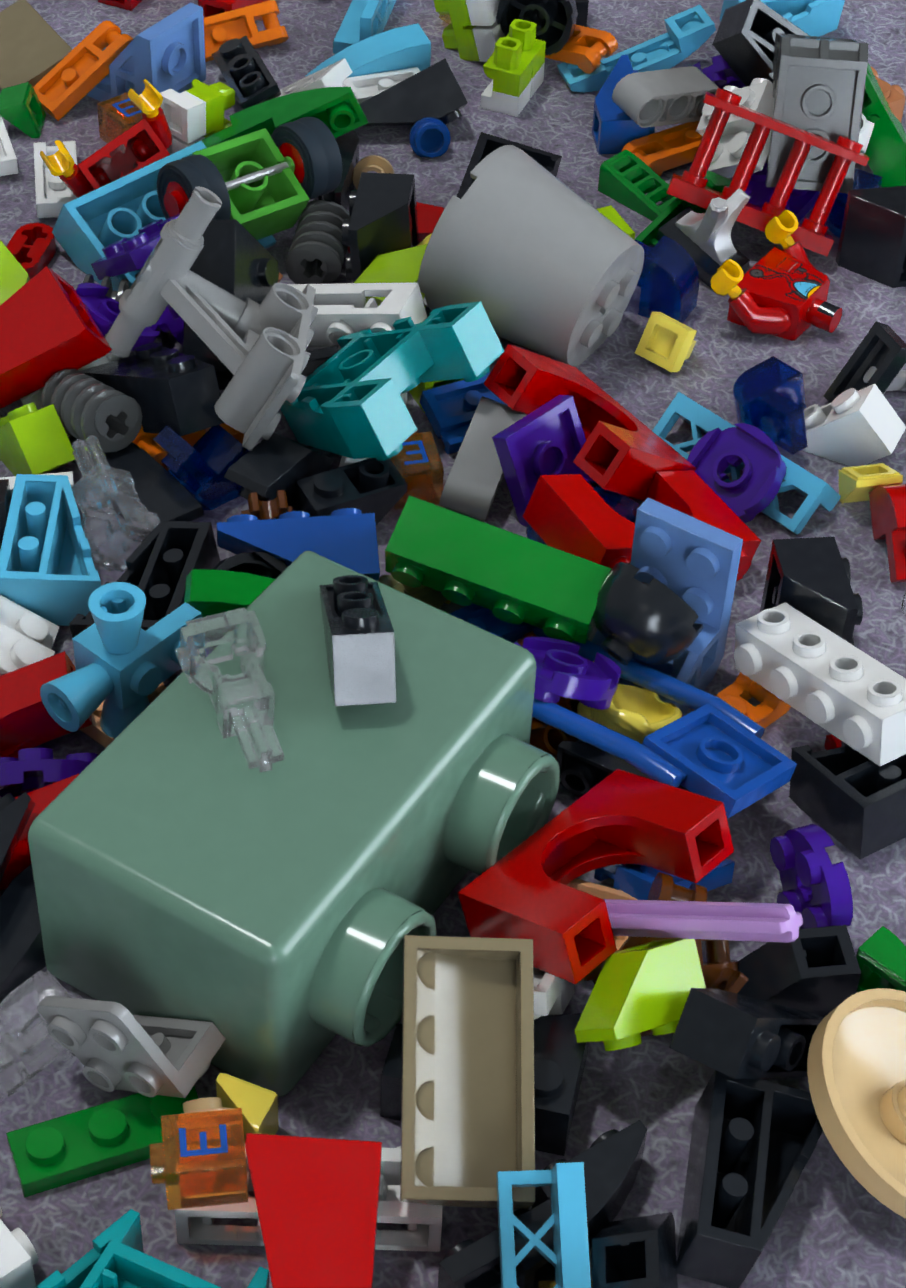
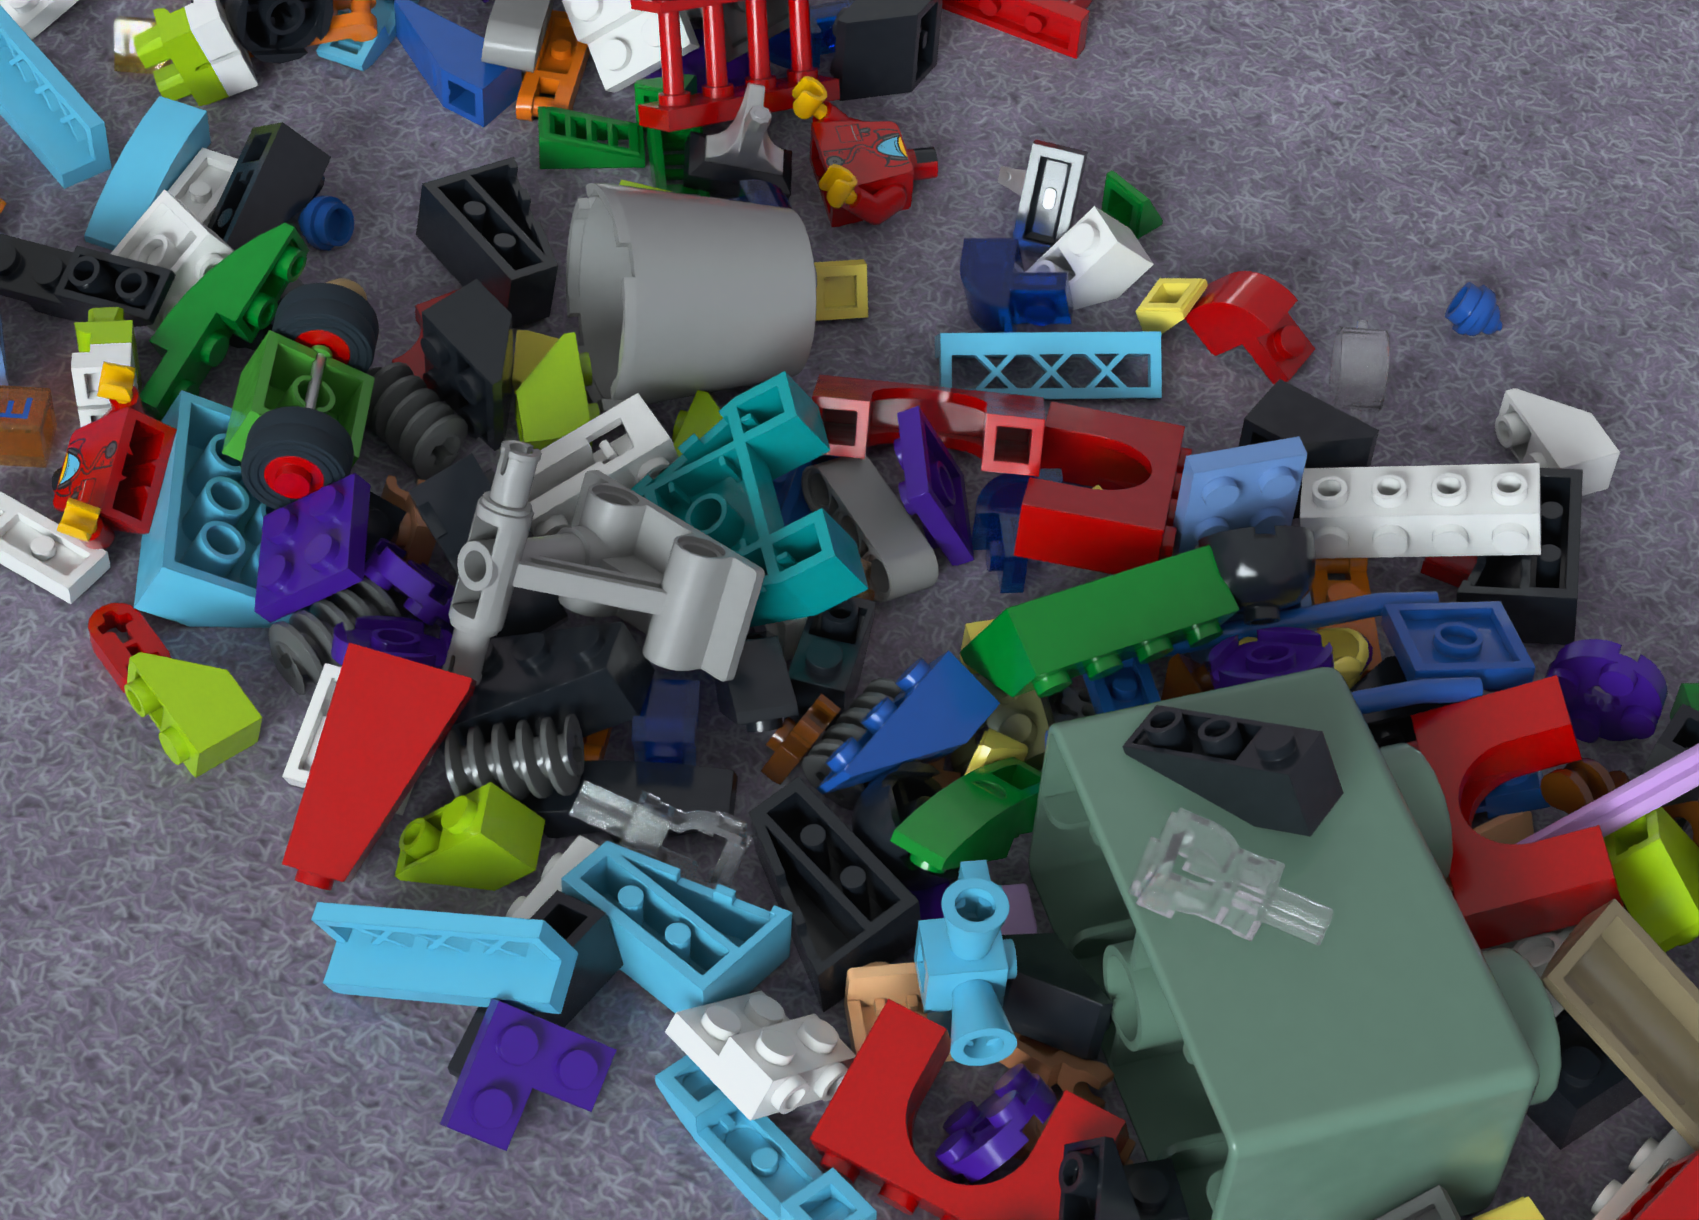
camera: 50 degrees left, 5 degrees up
(514, 69) = (307, 86): lime hips -> none
(761, 474) = (1082, 344): dark purple plate -> none

